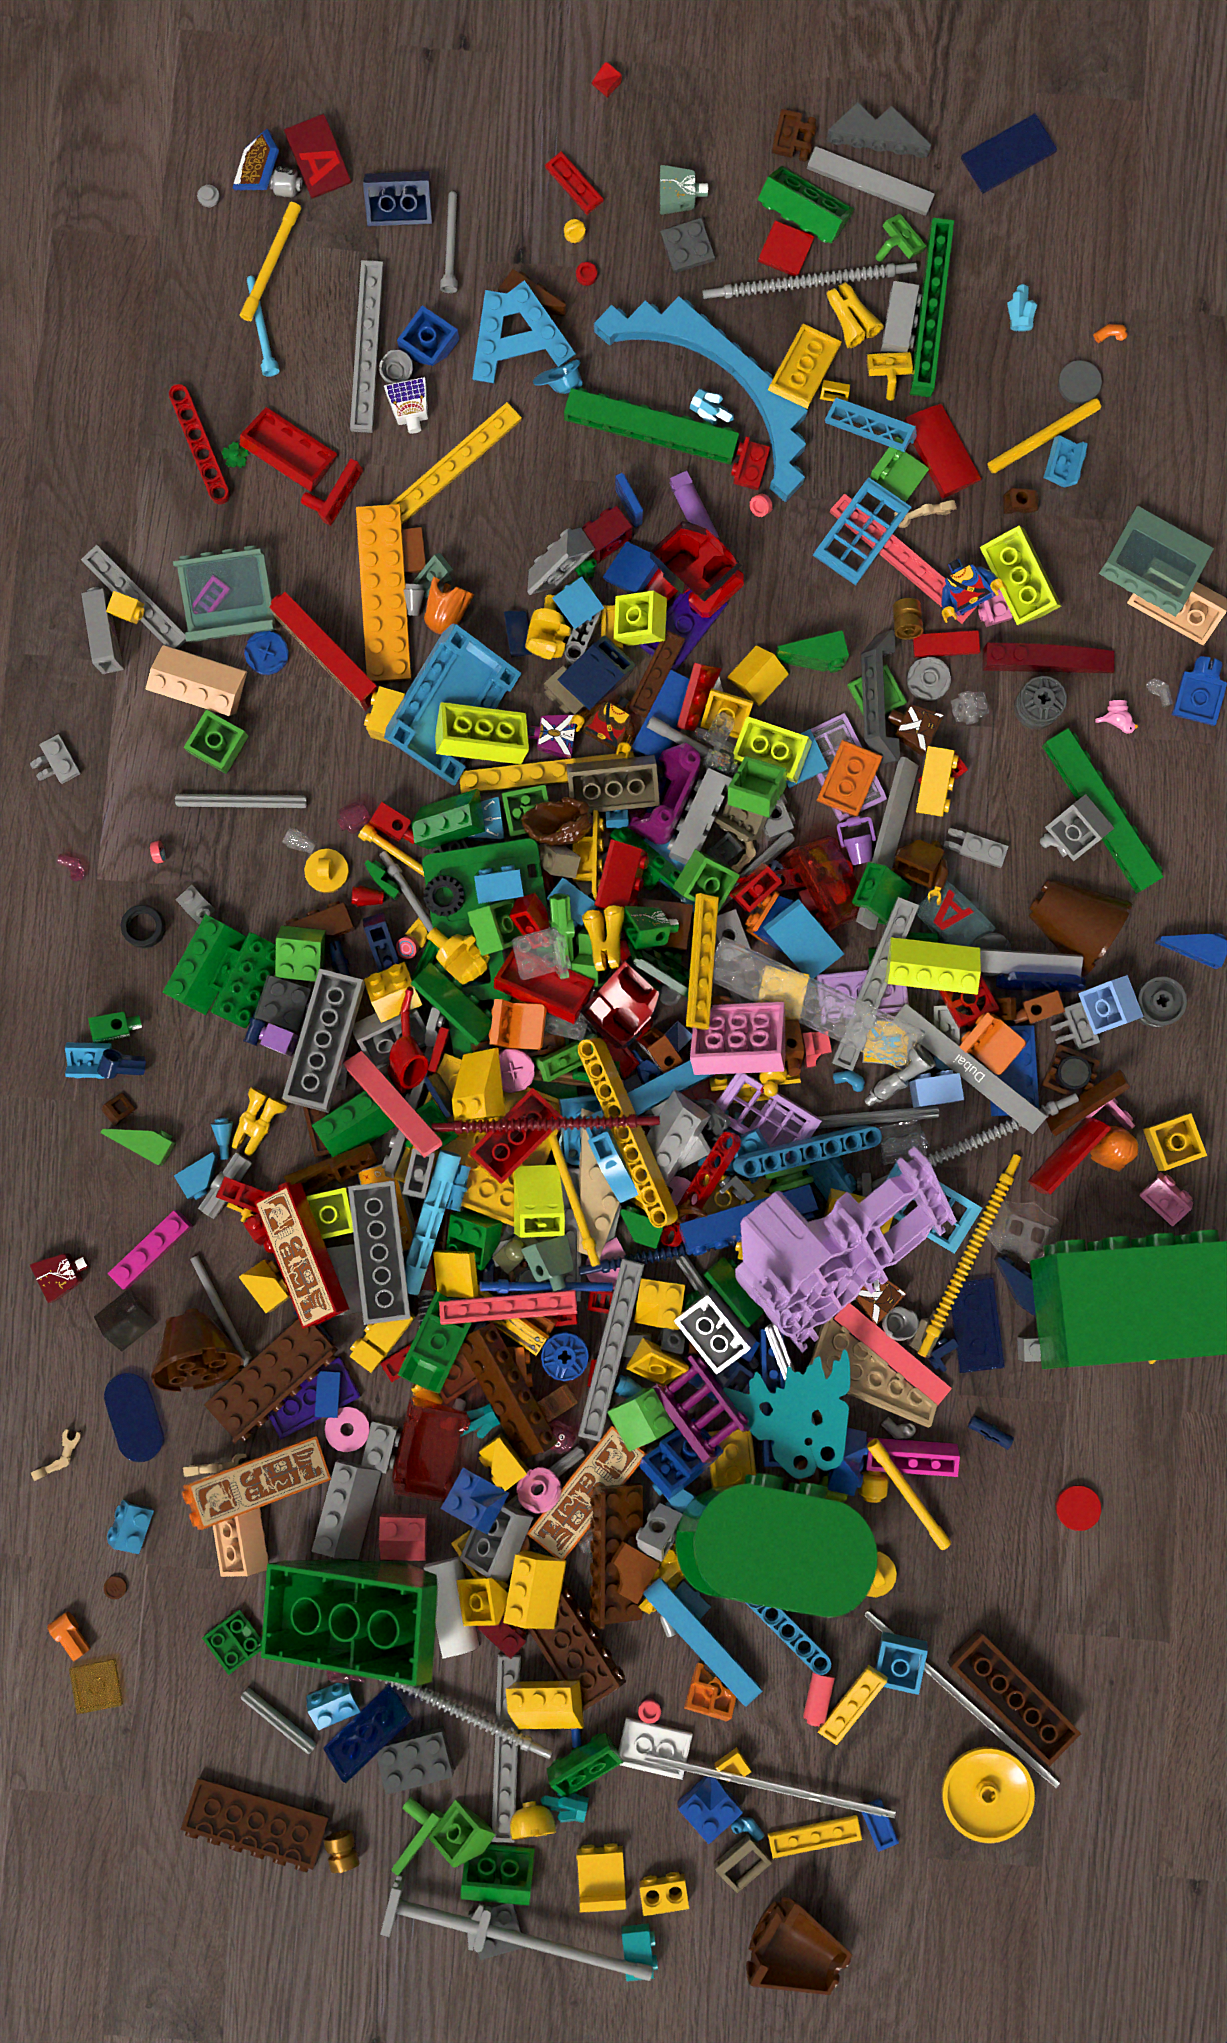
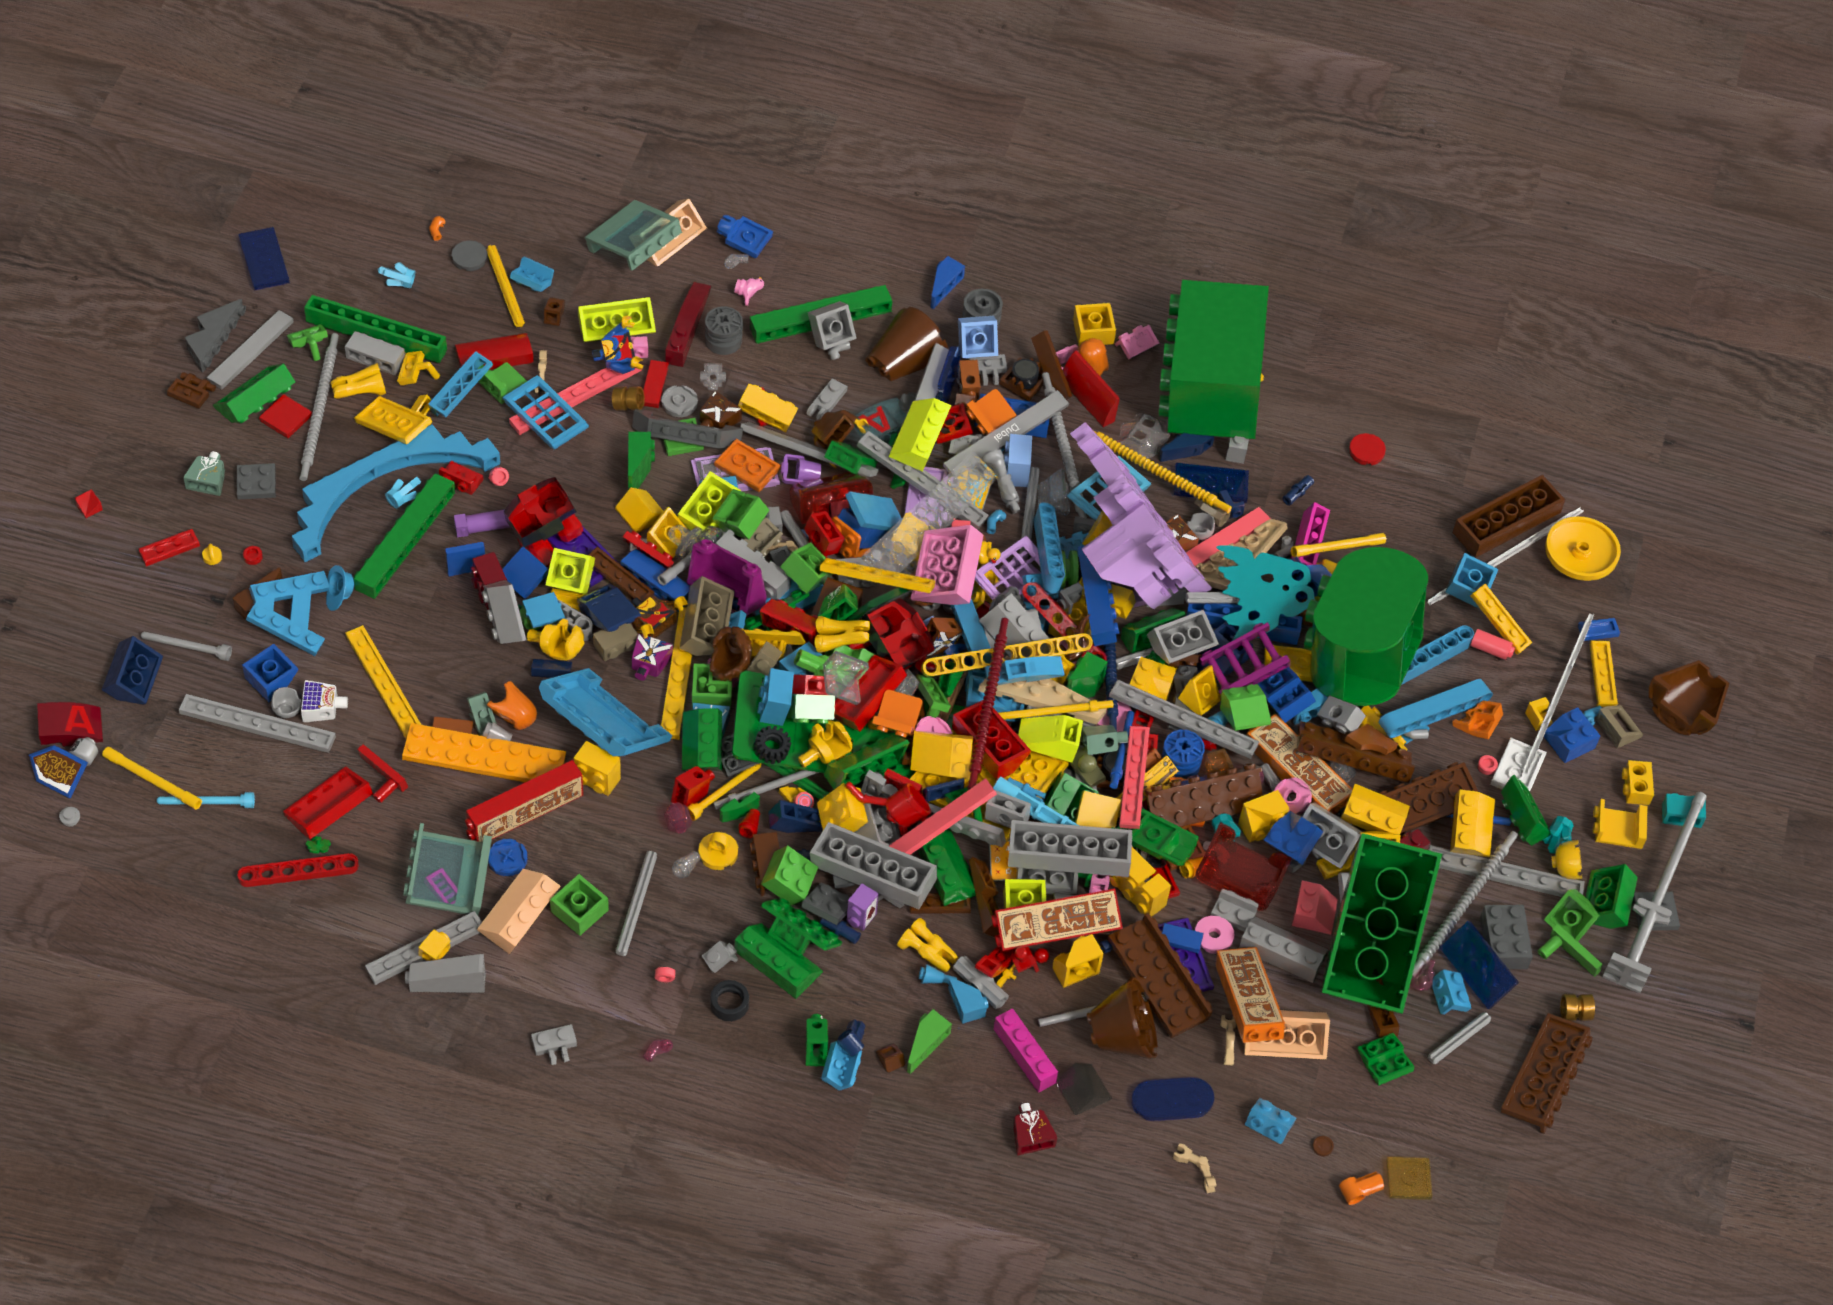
camera: 80 degrees left, 30 degrees down
(481, 733) = (635, 700): neon yellow slope -> none

